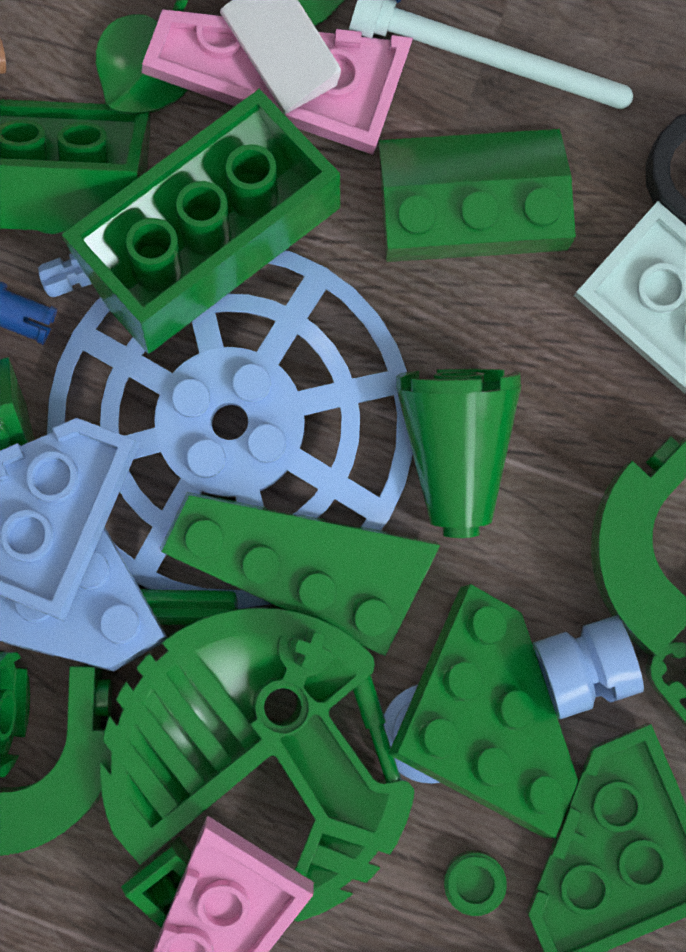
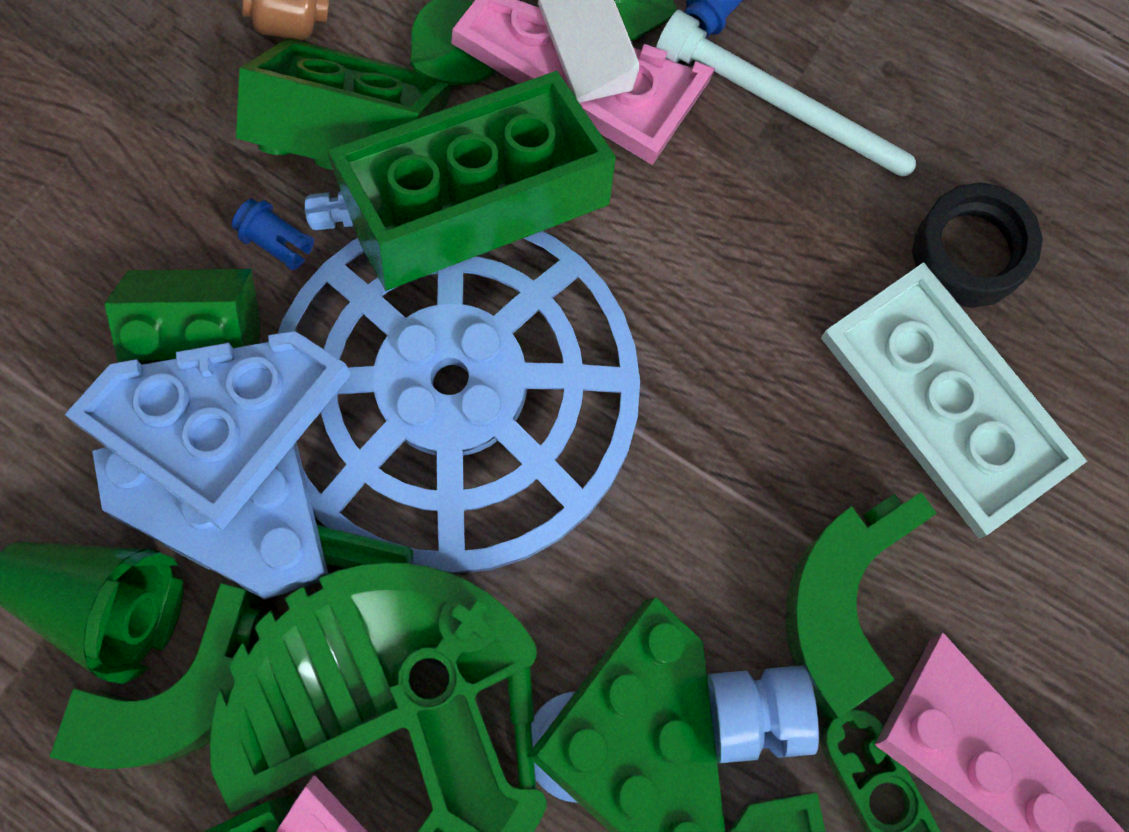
camera: 15 degrees right, 10 degrees down
(305, 564) = (497, 540): green wing -> none
(460, 441) = (676, 449): green cone -> none
(476, 195) = (745, 225): green slope -> none

